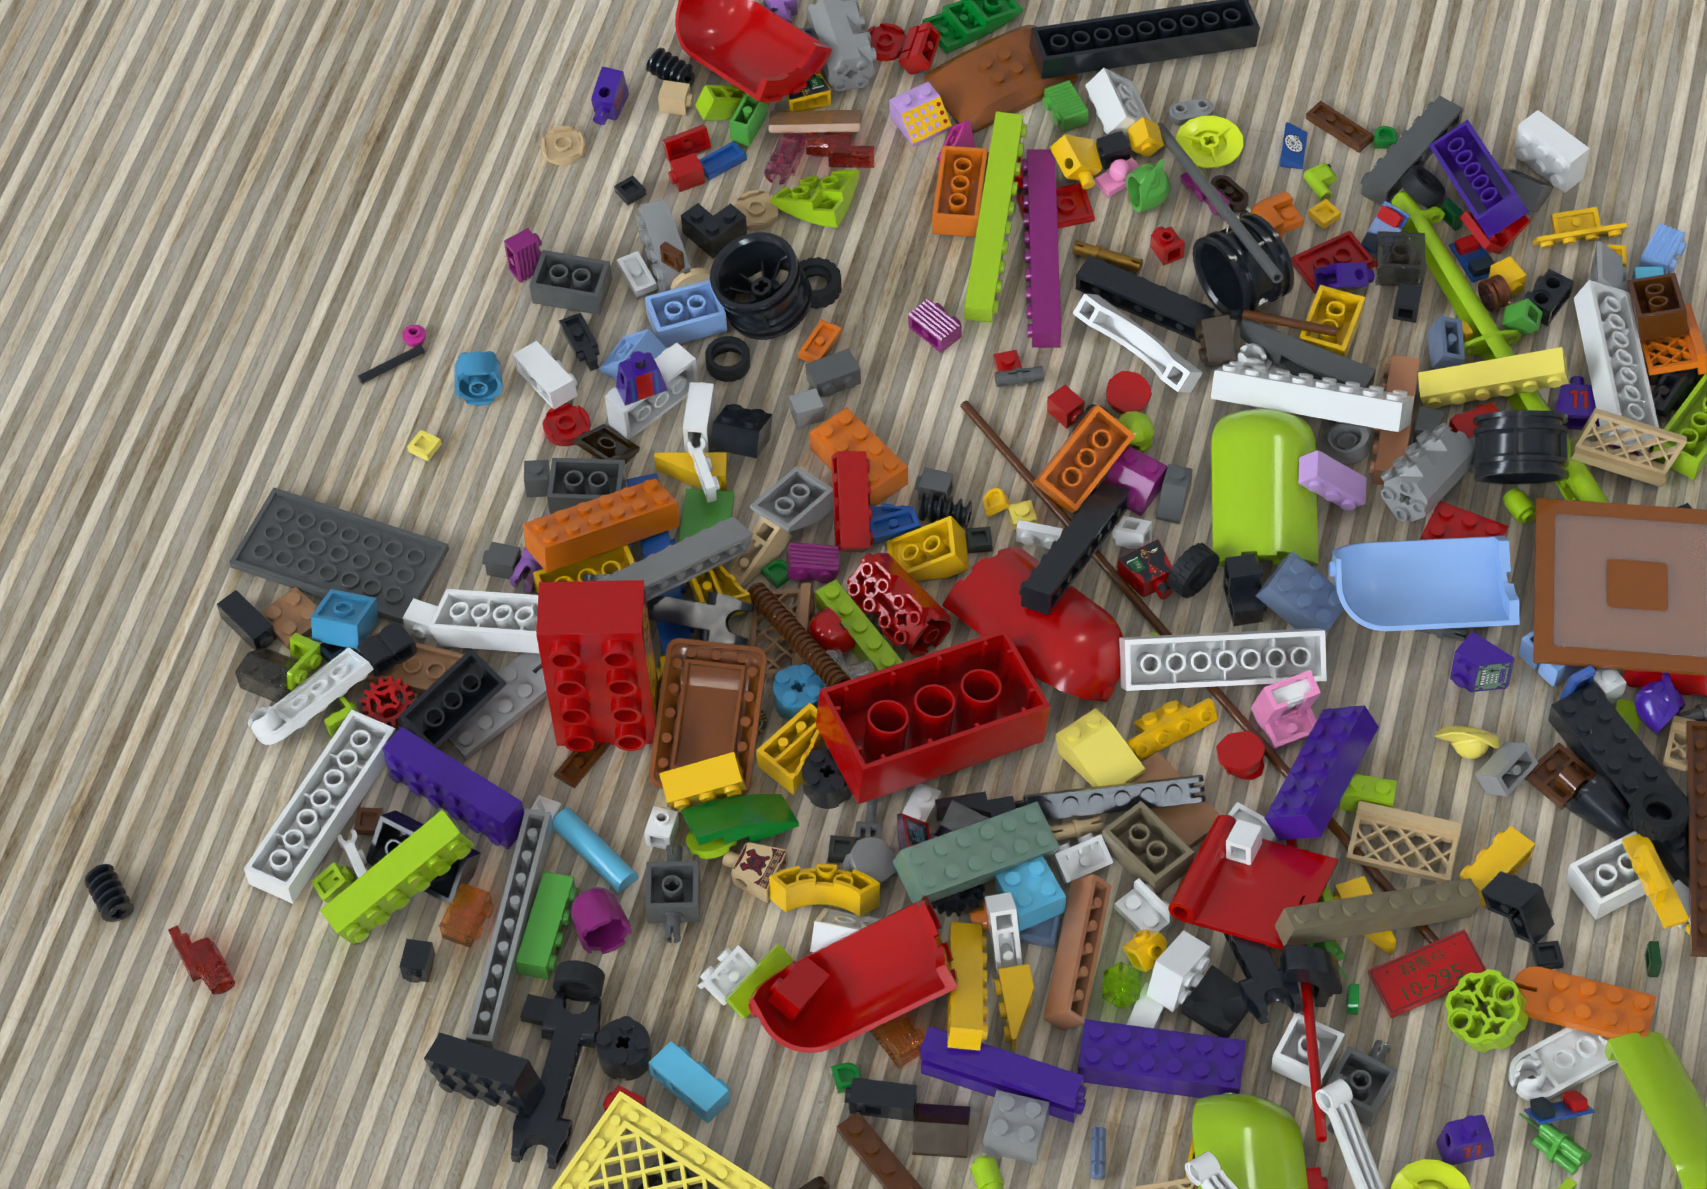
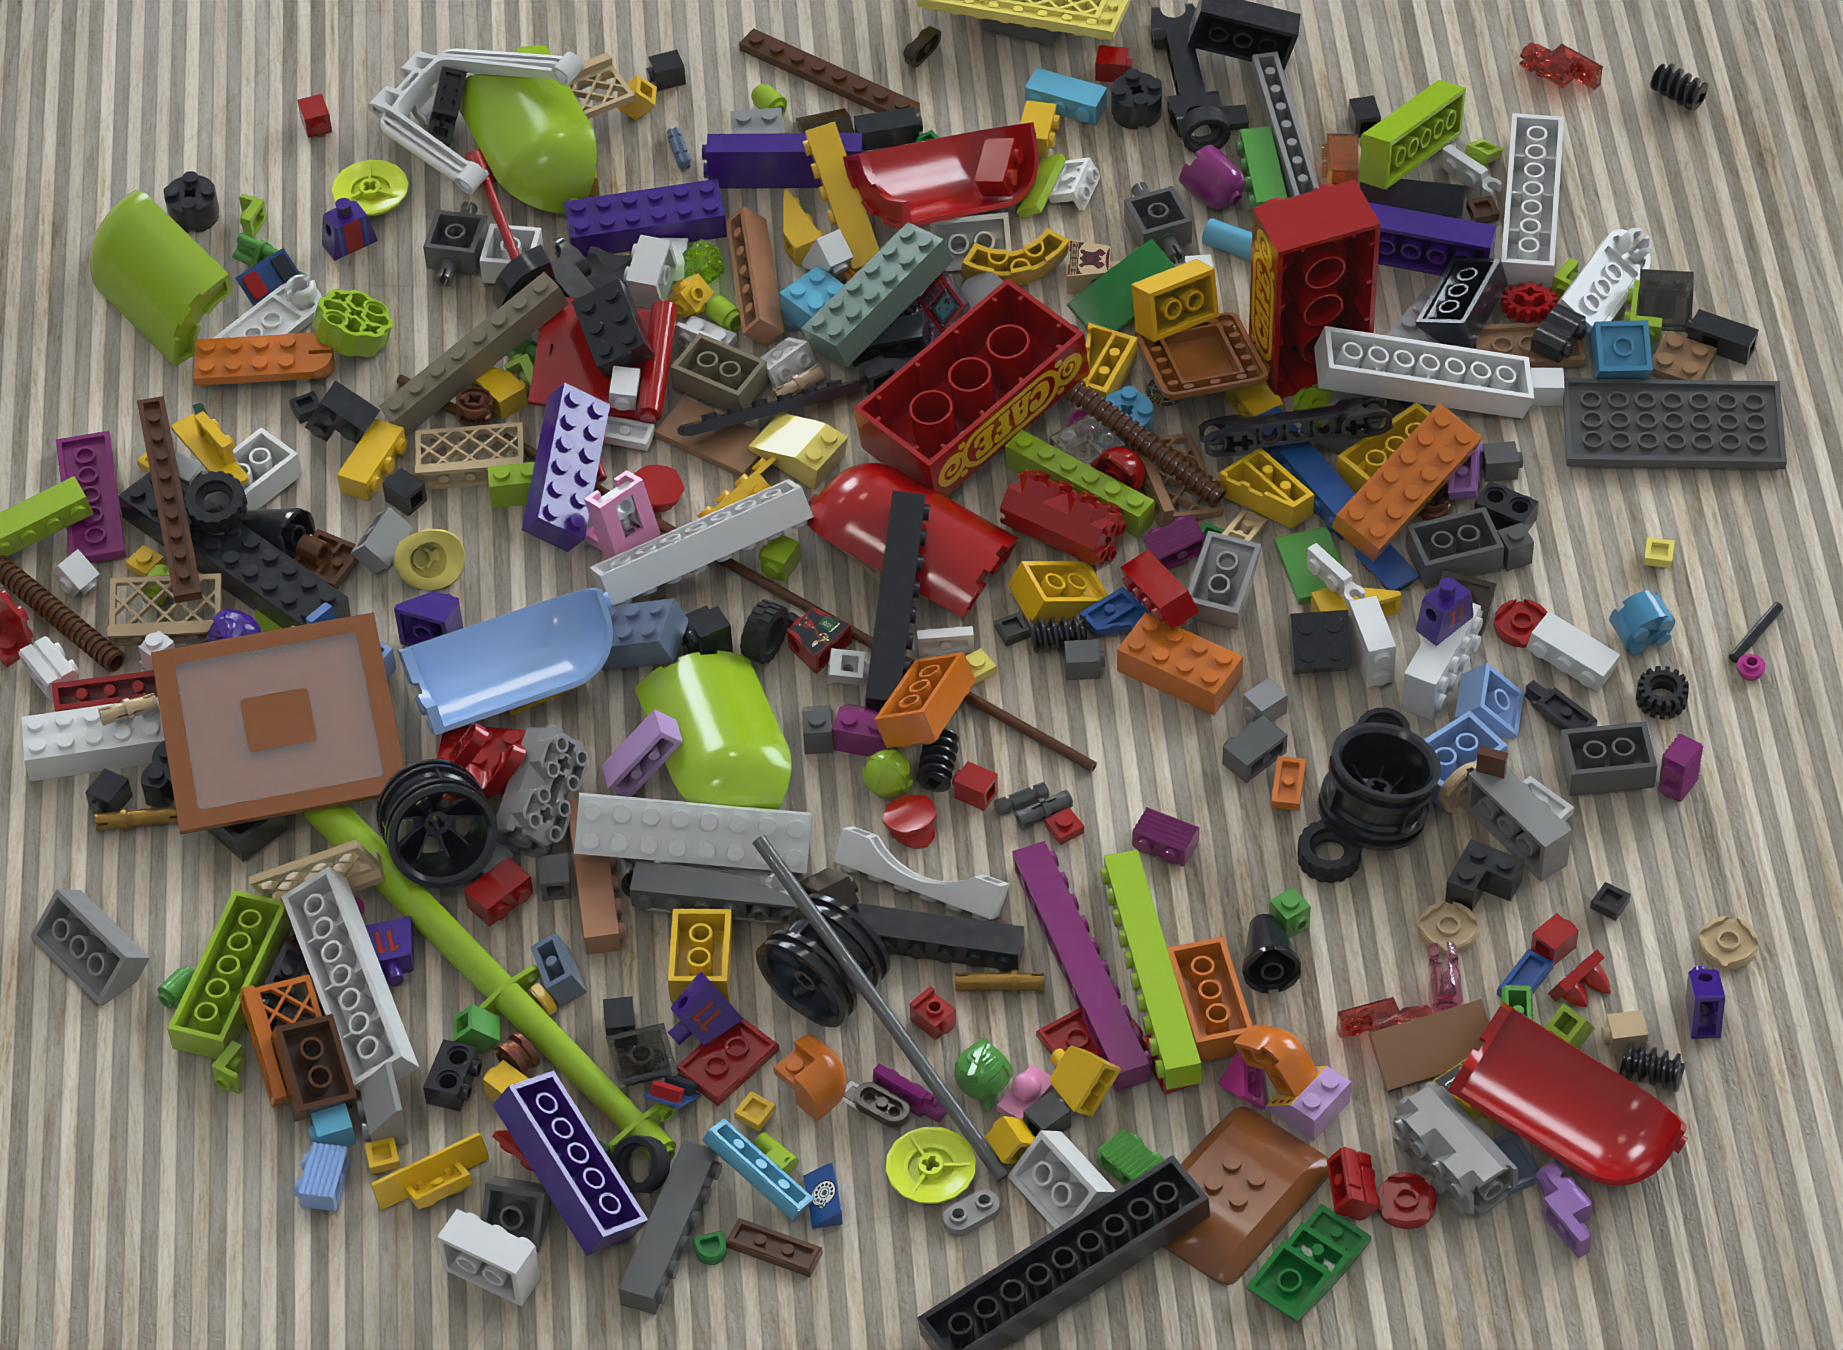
camera: 160 degrees right, 5 degrees down
(493, 321) = (1662, 680): none -> black tyre
(525, 510) = (1507, 506): none -> black brick
(688, 558) = (1301, 430): light grey brick -> none
(735, 1050) = (1045, 123): none -> yellow brick
(819, 200) = (1380, 956): lime brick -> none
(870, 240) = (1291, 911): none -> bright green brick
(901, 211) = (1269, 956): none -> black cone
(933, 125) = (1279, 1055): none -> orange brick
(995, 501) = (1010, 666): yellow tile -> none
(1031, 392) = (1021, 798): none -> dark grey axle
(1119, 926) = (723, 313): none -> lime brick
(1240, 881) = (613, 327): none -> black brick
(1290, 322) = (740, 914): reddish brown bar -> none
(1339, 158) = (758, 1169): none -> medium azure brick
(1352, 999) = (481, 311): green tile -> none
(1387, 879) = (474, 404): none -> copper wheel
(1425, 973) = (410, 354): red tile -> none
(1474, 492) = (490, 780): none -> red piece
(1476, 822) = (404, 491): none -> black brick
(1493, 378) = (489, 922): light yellow brick -> none

